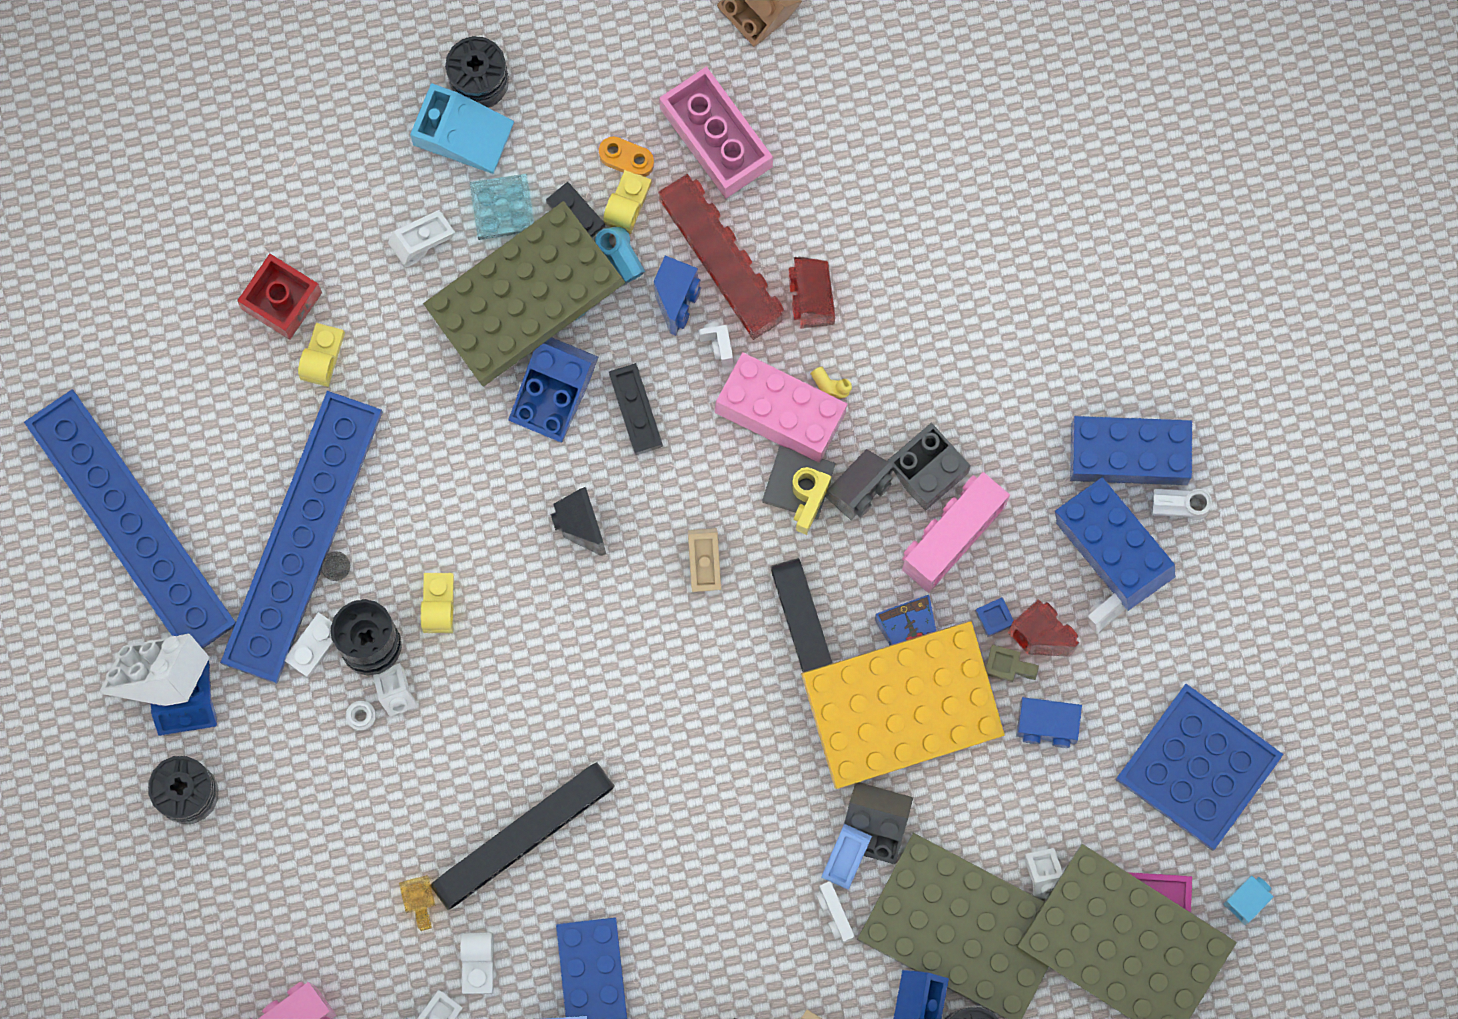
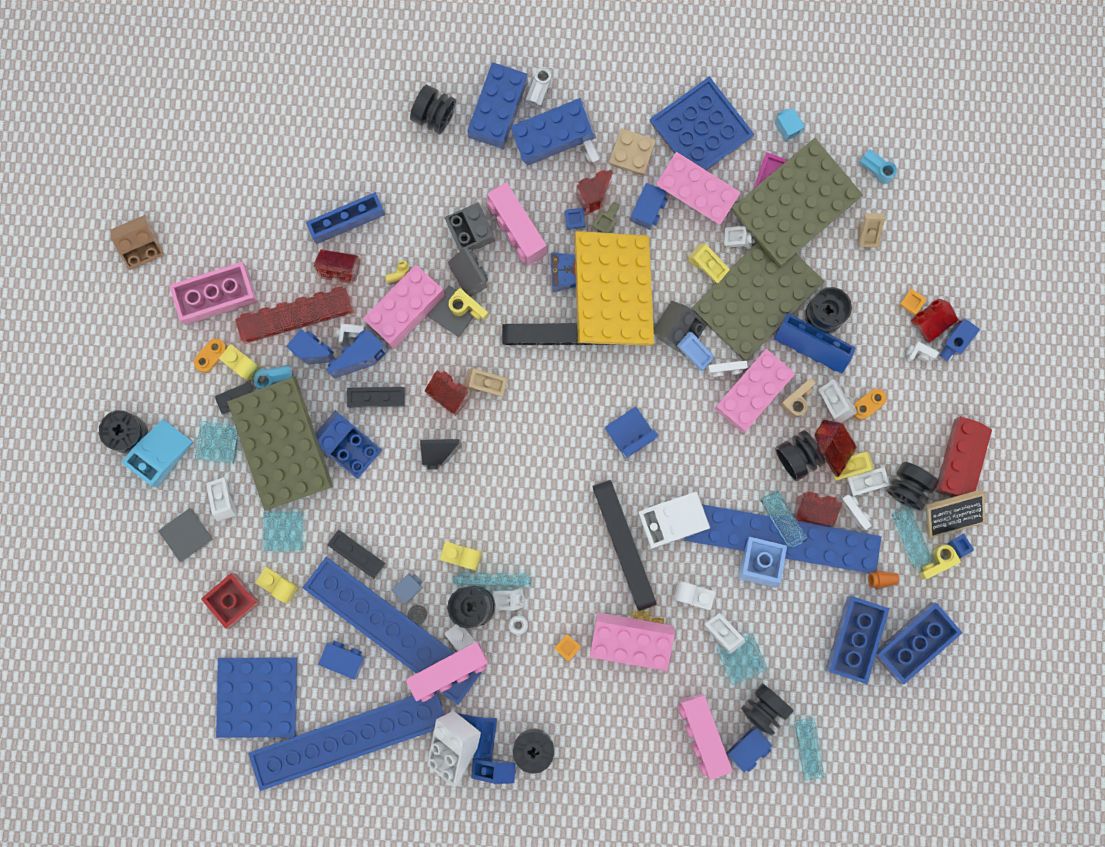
camera: 75 degrees left, 5 degrees up
(138, 740) = (493, 770): none -> blue brick
(154, 377) = (256, 697): none -> blue plate
(239, 478) = (342, 660): none -> blue brick
(259, 625) = (447, 671): none -> bright pink brick
(347, 797) = (567, 647): none -> light orange plate
(357, 205) = (185, 535): none -> dark grey tile
(368, 540) = (408, 588): none -> sand blue brick
(381, 886) = (632, 641): none -> bright pink brick
(397, 452) = (356, 554): none -> black plate
(401, 339) = (282, 531): none -> clear light blue plate
(413, 644) = (484, 579): none -> clear light blue plate
(579, 896) = (674, 520): none -> white slope
(670, 507) = (447, 393): none -> clear red slope
(694, 370) = (360, 355): none -> blue slope
(694, 796) = (631, 432): none -> blue bracket
(812, 963) = (754, 391): none -> bright pink brick
(886, 282) = (345, 218): none -> blue brick
(989, 838) = (709, 262): none -> light yellow plate
(1091, 356) = (430, 108): none -> black wheel
(1098, 785) = (698, 188): none -> bright pink brick
(1127, 673) = (632, 152): none -> tan plate

